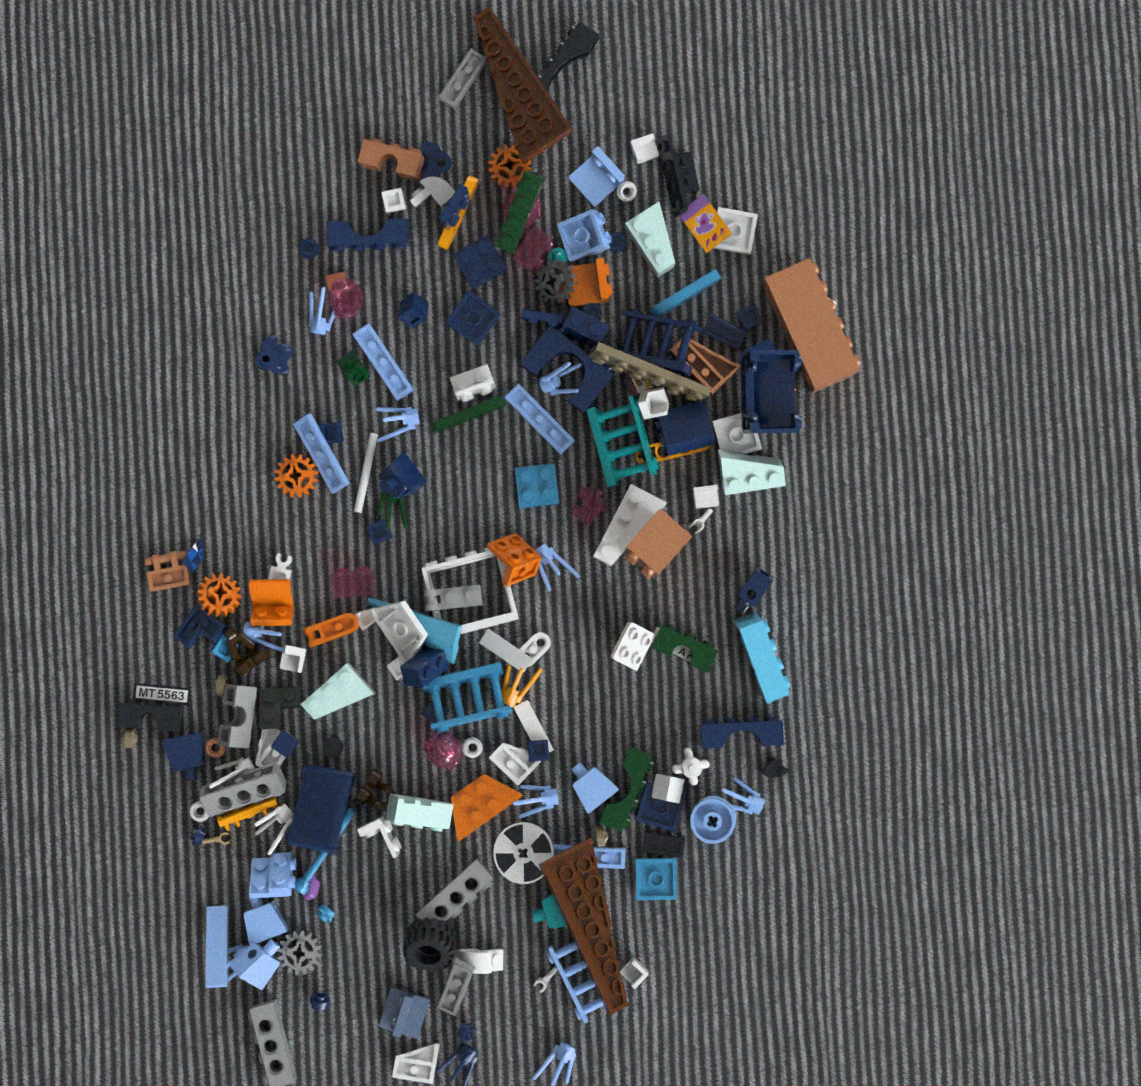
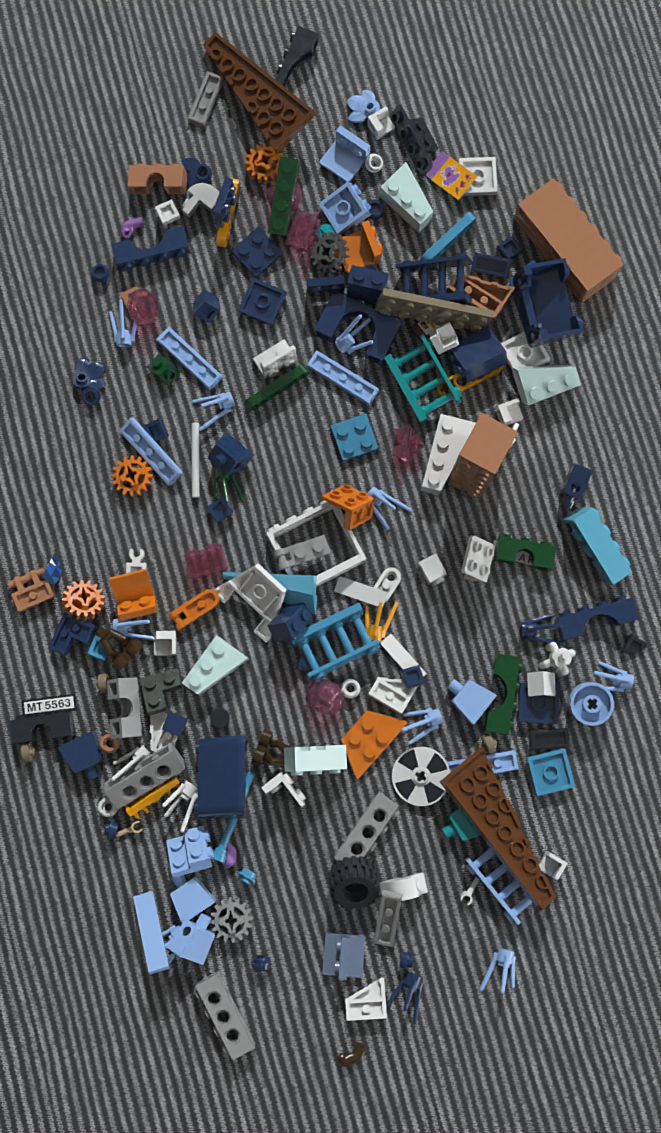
camera: 20 degrees left, 5 degrees down
(268, 384) = (87, 400): none -> dark blue plate
(351, 203) = (129, 227): none -> medium lavender arm
(585, 645) = (432, 569): none -> white brick
(627, 123) = (361, 105): none -> light blue plate
(671, 728) = (530, 628): none -> dark blue plant

